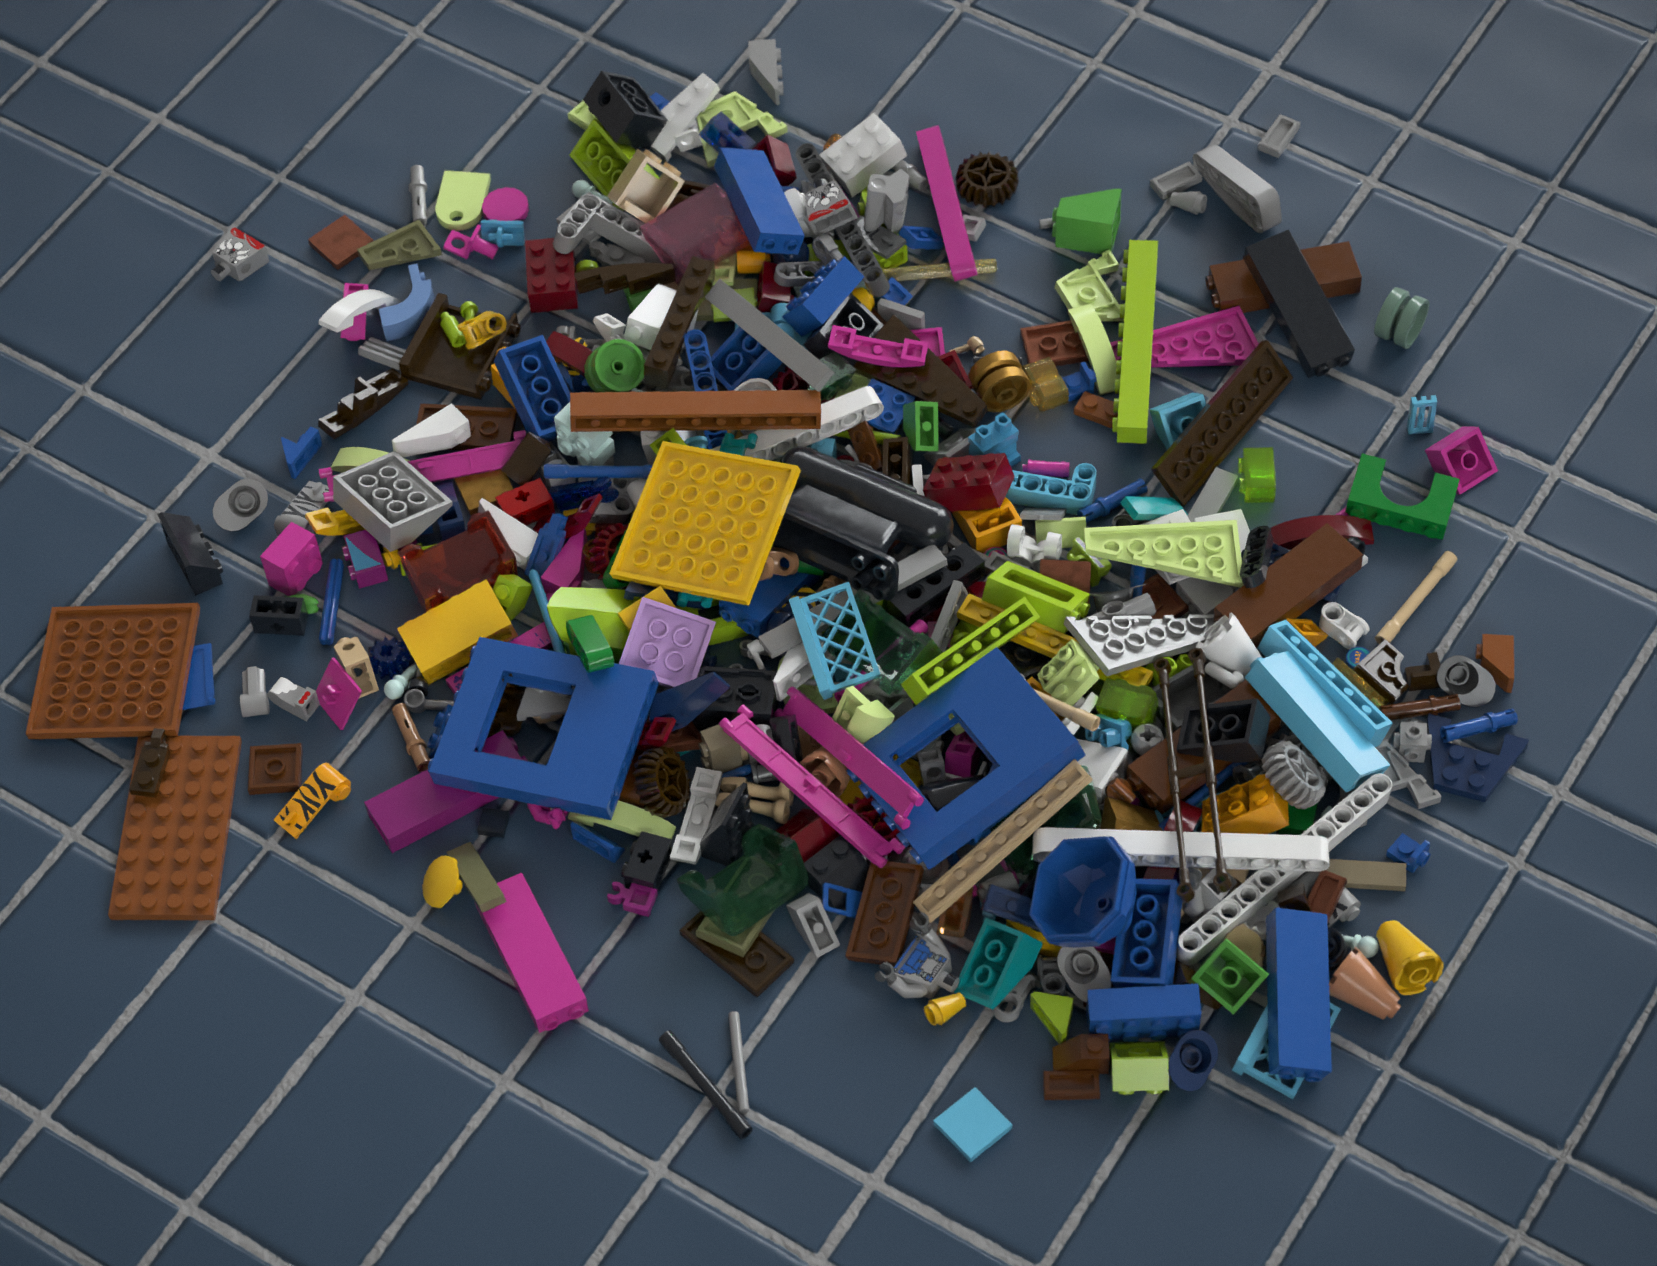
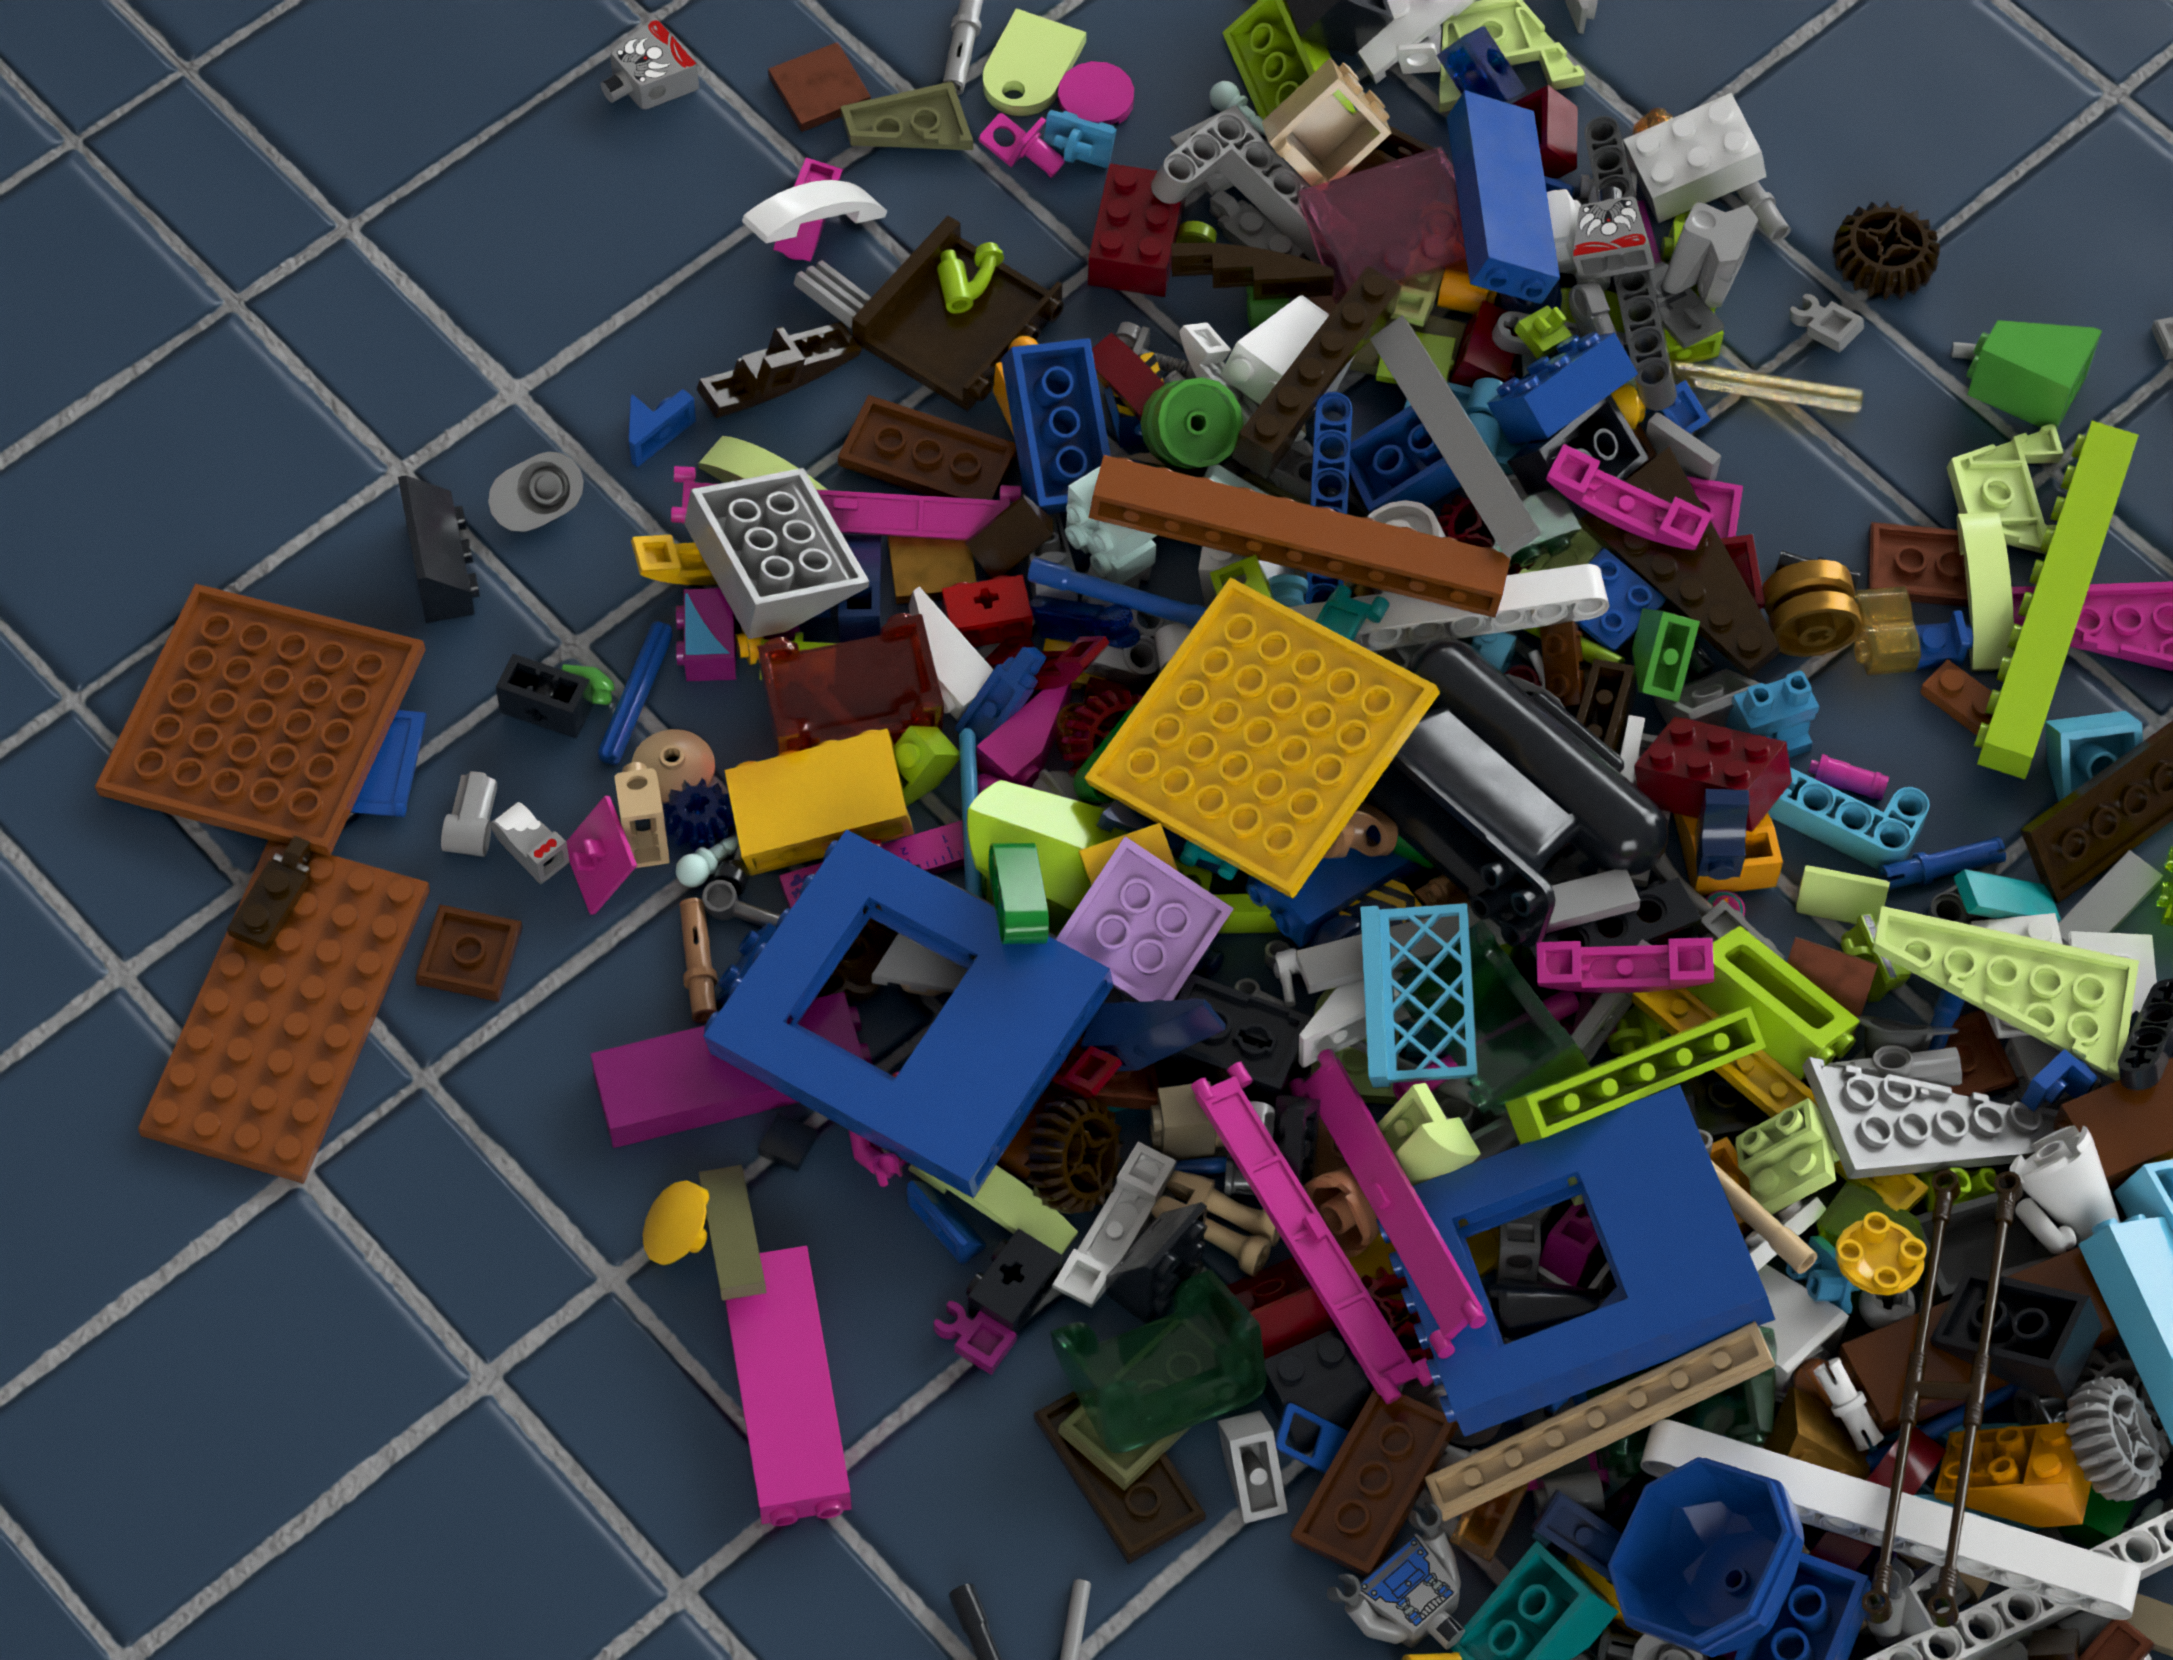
camera: 10 degrees right, 5 degrees up
(291, 559) = (590, 608): dark pink brick -> none
(308, 500) = (644, 514): light grey door -> none
(311, 797) = (529, 1006): light orange door -> none
(373, 626) = (694, 760): none -> tan dish
(407, 316) = (889, 240): medium blue arch -> none
(434, 434) = (877, 455): white slope -> none
(477, 330) = (992, 298): yellow piece -> none
(803, 268) = (1543, 331): none -> lime tile
(921, 237) = (1751, 324): blue plate -> none
(946, 203) = (1808, 277): dark pink beam -> none
(949, 597) = (1625, 968): none -> dark pink slope
(973, 344) = (1787, 528): tan hand -> none
(982, 511) = (1721, 833): none -> dark blue arch
(1027, 551) = (1780, 918): white piece -> none
(1043, 514) = (1821, 856): light grey piece -> none
(1135, 711) = (1880, 1255): none -> yellow dish
(1140, 797) = (1848, 1404): none -> white pin
(1208, 595) = (2061, 1075): none -> blue bracket

